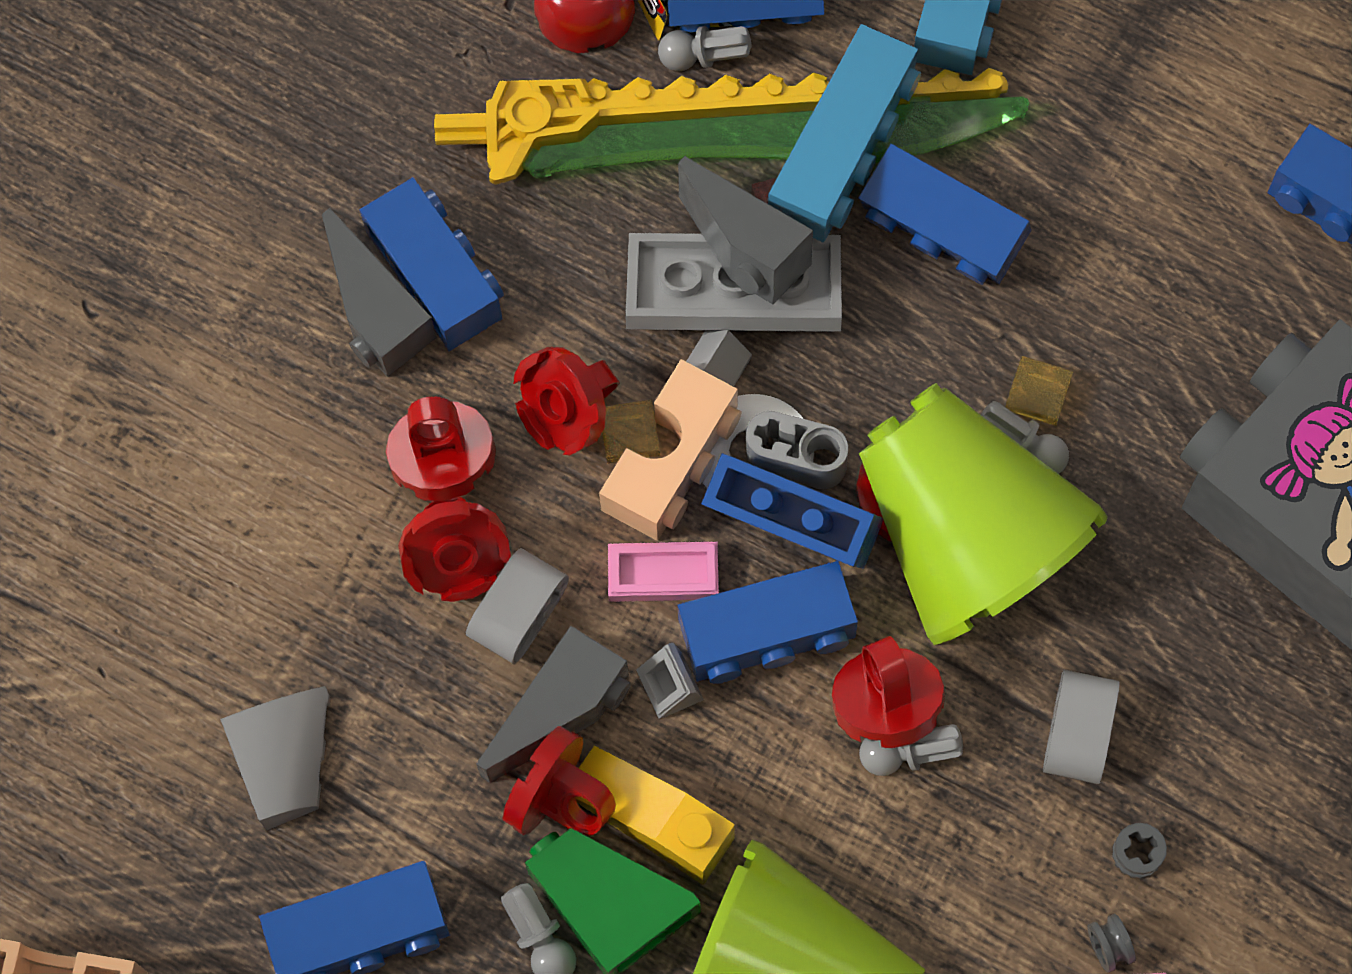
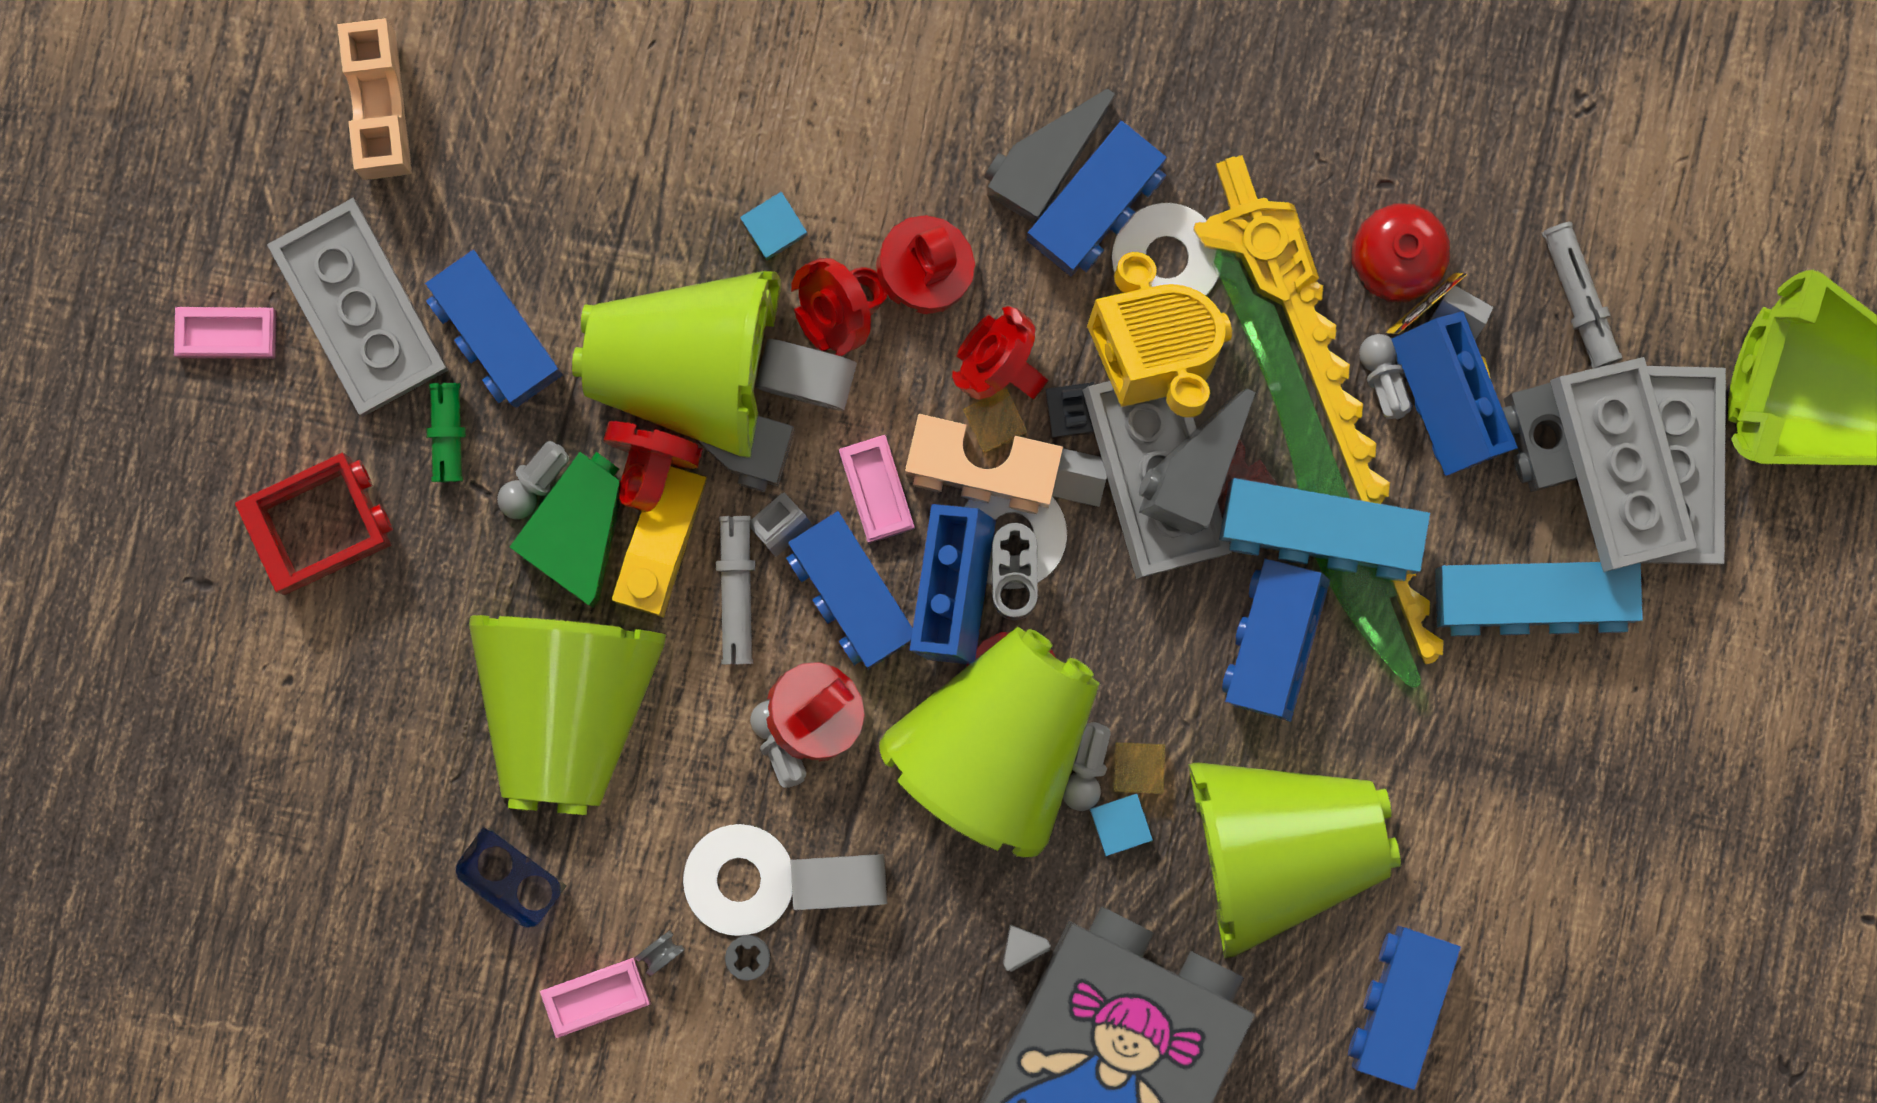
camera: 70 degrees right, 15 degrees up
(281, 754) = (621, 219): light grey slope -> none
(345, 597) = (774, 226): none -> dark azure tile
(458, 717) = (682, 356): none -> lime cone
(522, 256) = (1175, 222): none -> white gear
(598, 237) = (1157, 338): none -> yellow piece
(642, 354) = (1068, 411): none -> black tile
(728, 746) = (736, 589): none -> light grey pin
(1032, 877) = (702, 885): none -> white gear
(1094, 424) = (1121, 824): none -> dark azure tile
(1160, 265) = (1287, 846): none -> lime cone
(1202, 556) = (1022, 947): none -> light grey slope

